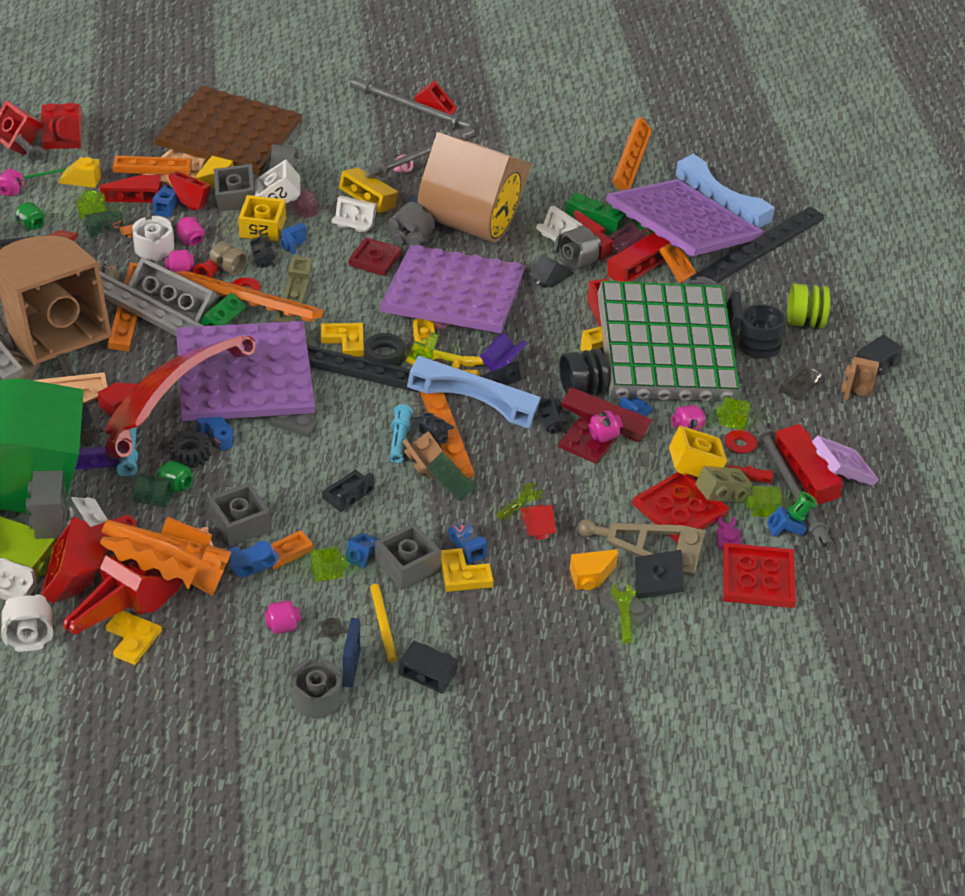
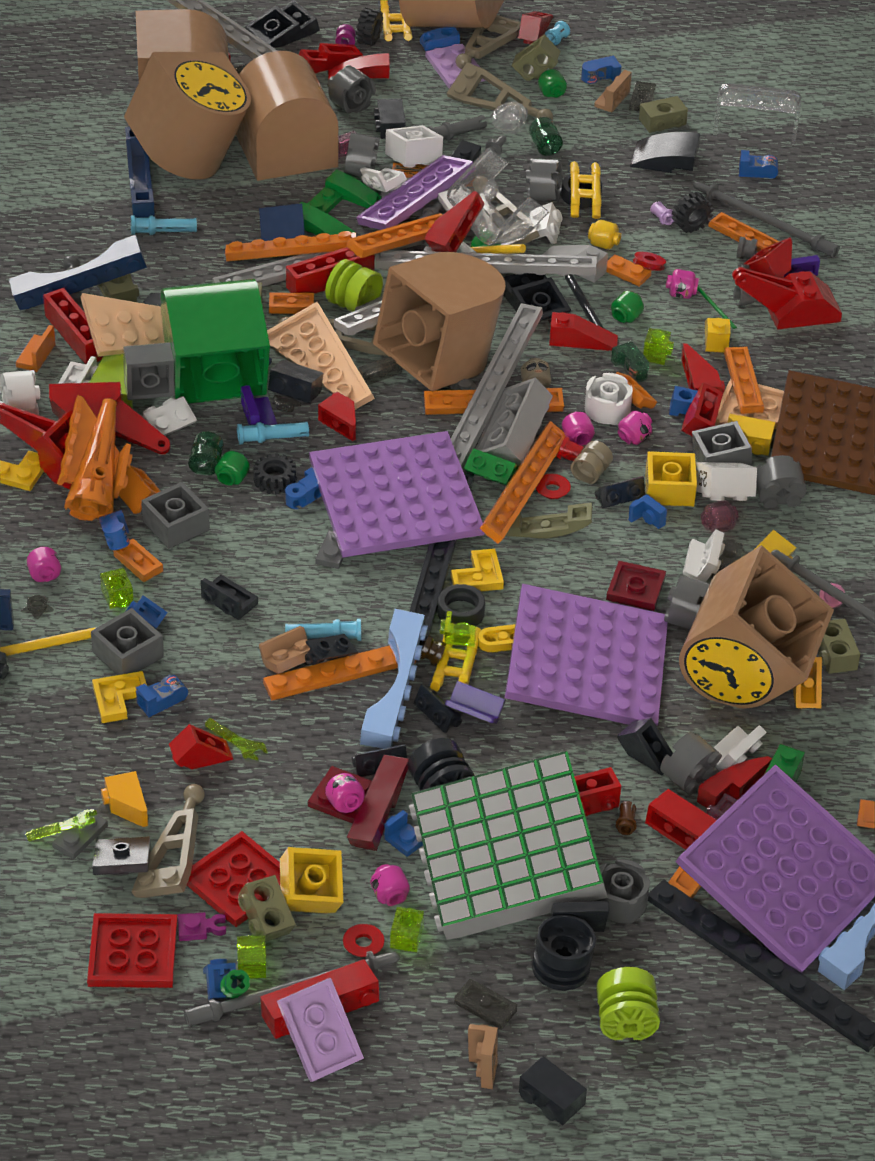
camera: 85 degrees right, 0 degrees up
(149, 391) = (360, 427): red panel -> none
(451, 476) = (250, 675): clear green slope -> none
(754, 474) = (302, 945): red pin -> none

